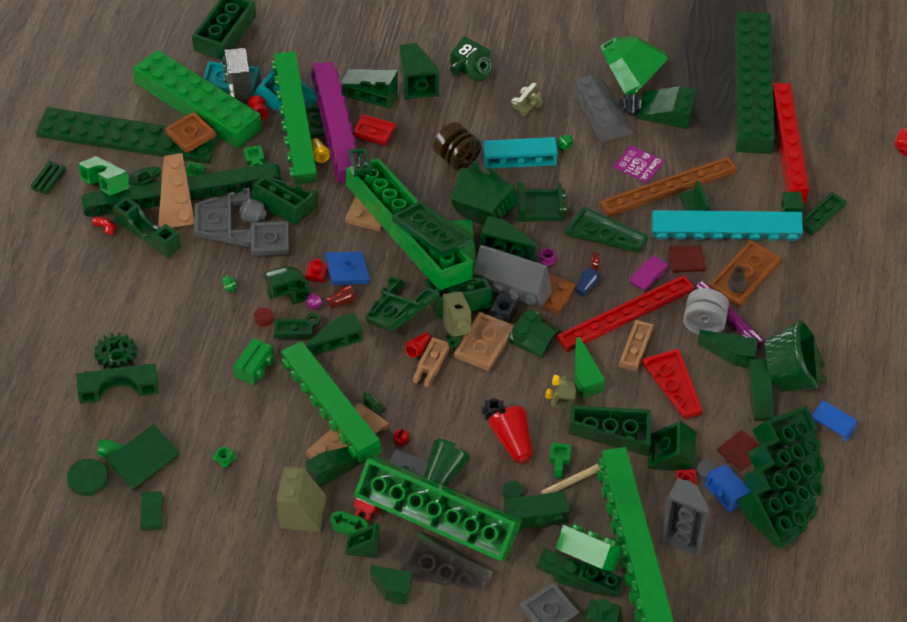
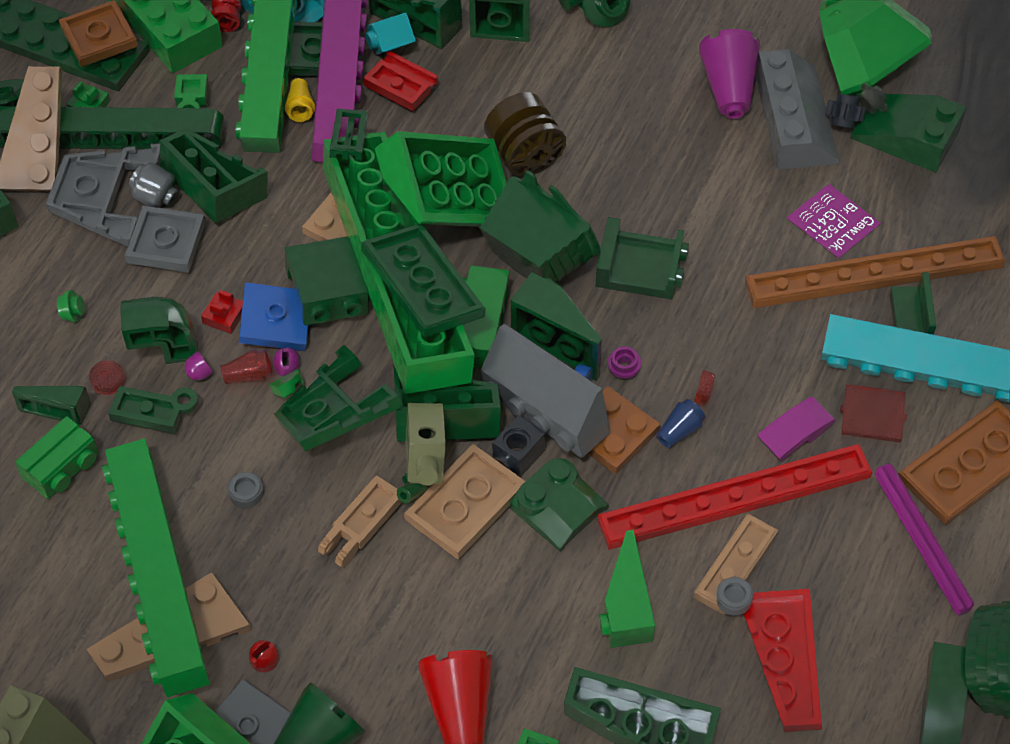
camera: 15 degrees right, 5 degrees up
(238, 333) = (53, 401): none -> dark green slope
(330, 465) = (113, 688): dark green slope -> none
(337, 334) = (218, 435): dark green slope -> none
(360, 104) = (389, 34): none -> teal brick
(361, 295) = (293, 361): none -> magenta hinge
(362, 359) = (245, 490): none -> dark grey tile
(366, 302) = (286, 385): none -> green tile
(371, 242) = (327, 280): none -> dark green panel
(373, 403) = (236, 580): dark green slope -> none
(417, 345) = (347, 484): red cone -> none
(421, 175) = (442, 176): none -> green slope
(492, 407) = (440, 638): black gear -> none
(520, 152) = (631, 164): teal brick -> none
(529, 98) = (675, 72): olive hips -> none
(560, 91) = (731, 69): none -> magenta cone
(564, 393) = (576, 636): olive piece -> none
(565, 142) = (715, 159): green plate -> none
(601, 229) = (735, 330): dark green wing -> none
(640, 359) = (734, 596): none -> dark grey tile
(643, 94) = (873, 98): none -> clear smoke plate
(706, 311) = (877, 528): light grey wheel -> none
(729, 347) = (911, 608): dark green slope -> none
(737, 280) = (952, 477): clear smoke cone -> none

